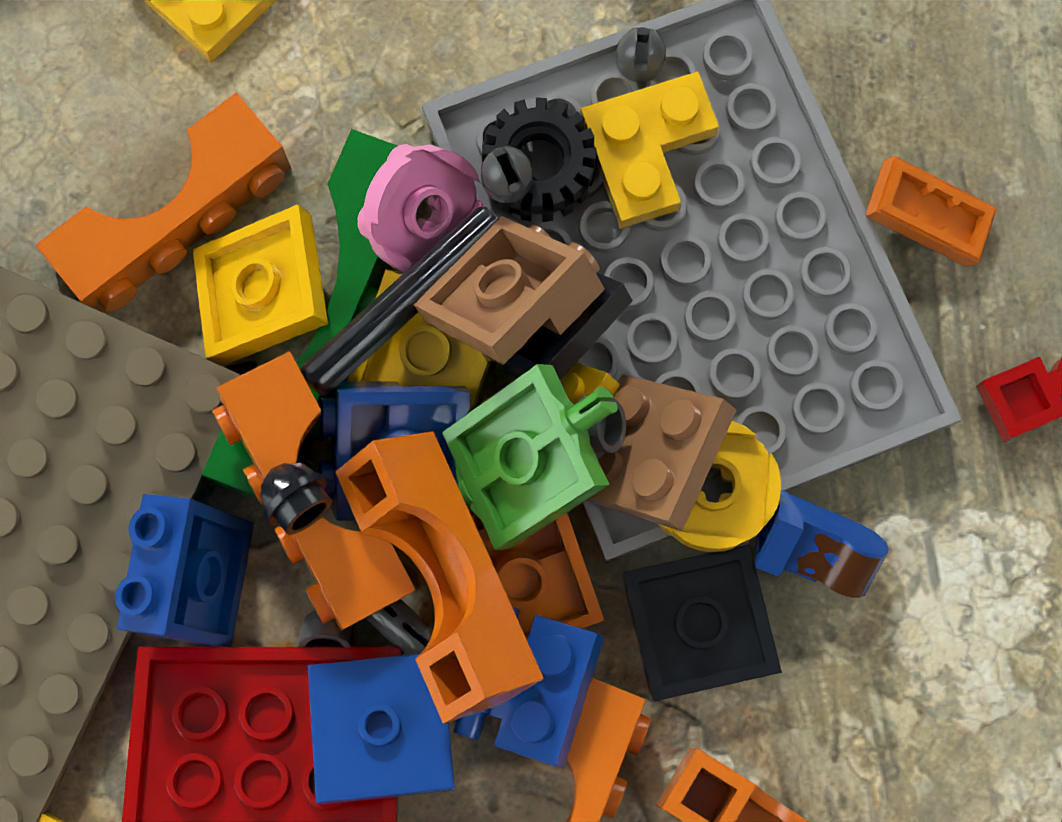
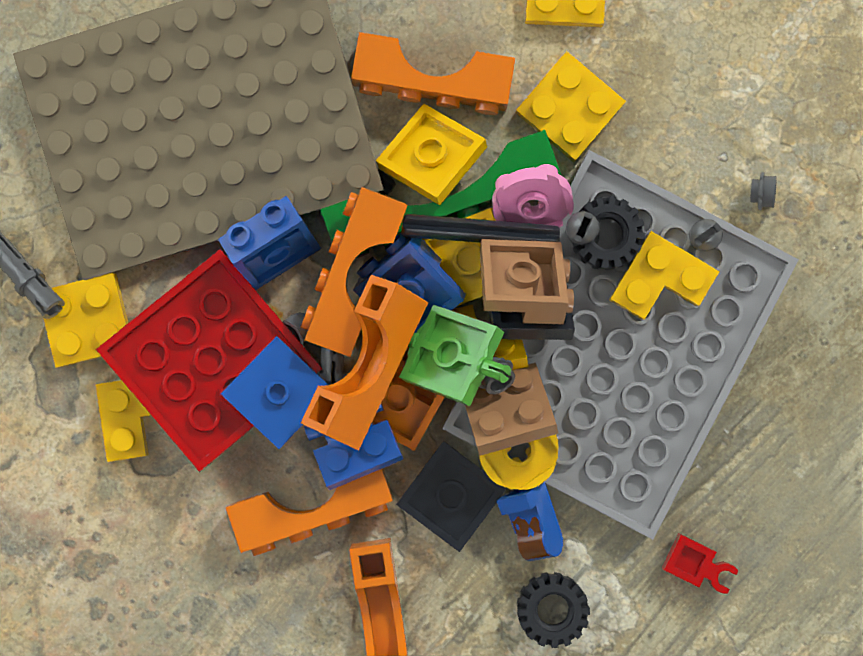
camera: 50 degrees right, 10 degrees up
(294, 497) = (342, 268): black plate -> none
(352, 82) = (570, 106): none -> yellow plate
(931, 211) = (747, 441): orange plate -> none
(990, 618) = (558, 633): none -> black tyre

